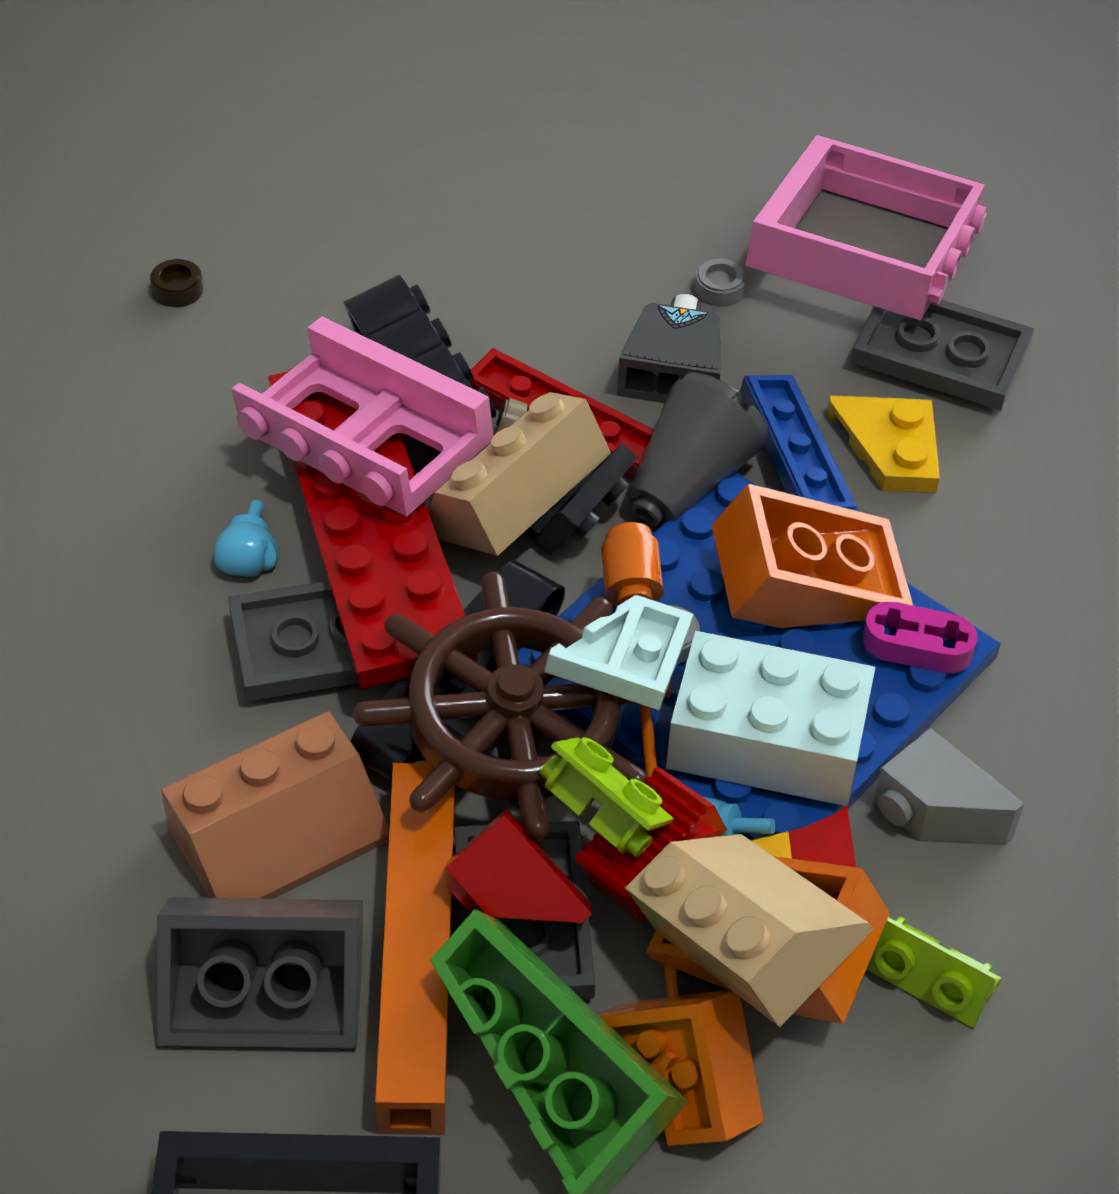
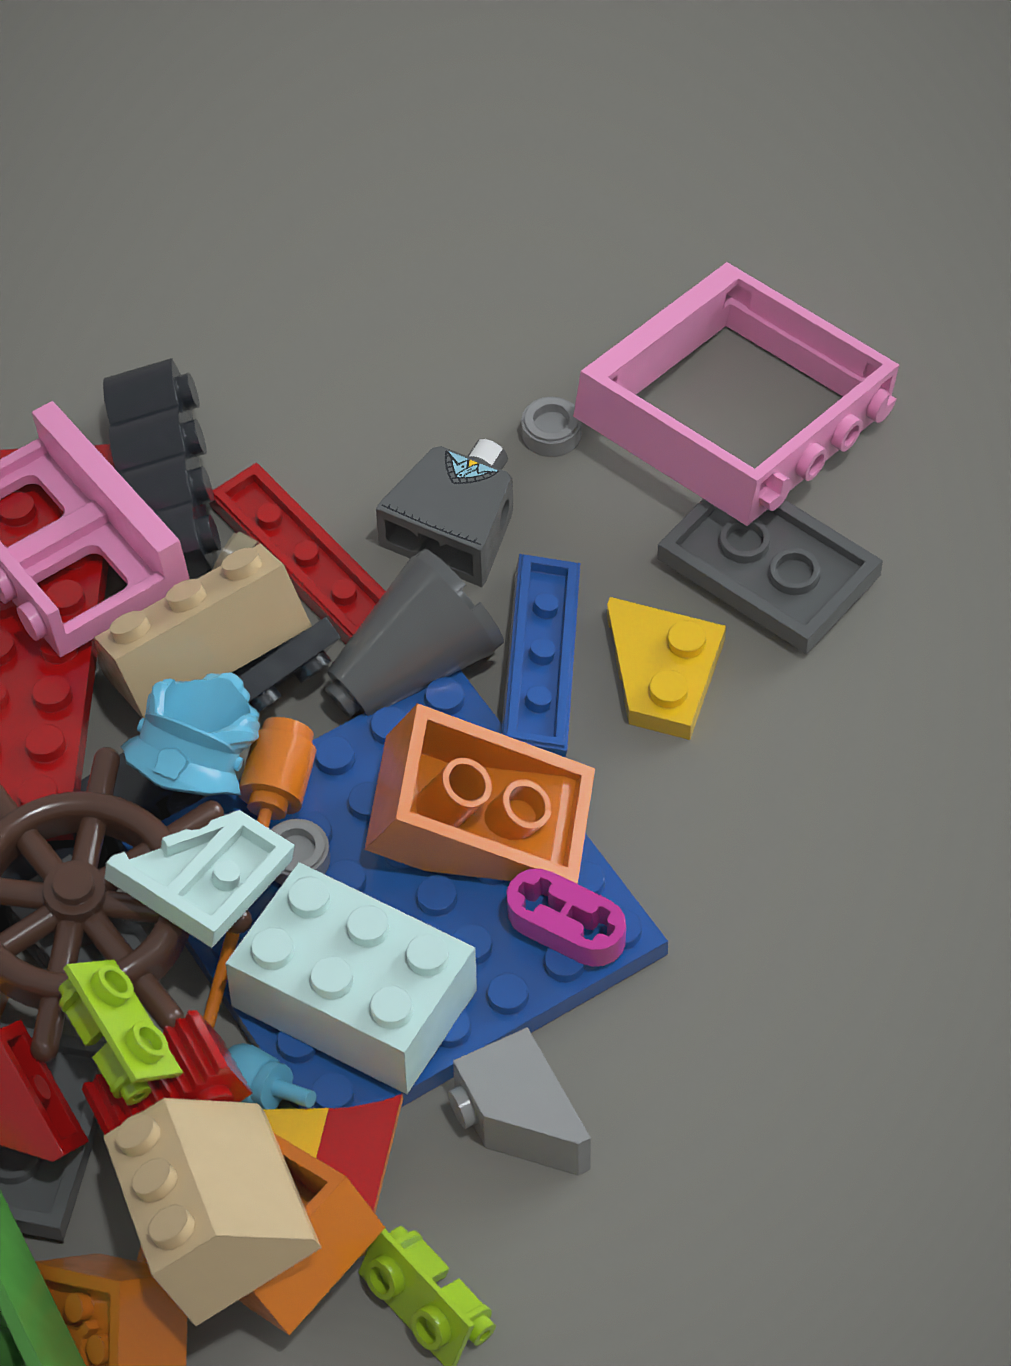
camera: 20 degrees right, 5 degrees up
(563, 547) = (194, 735): none -> medium azure piece

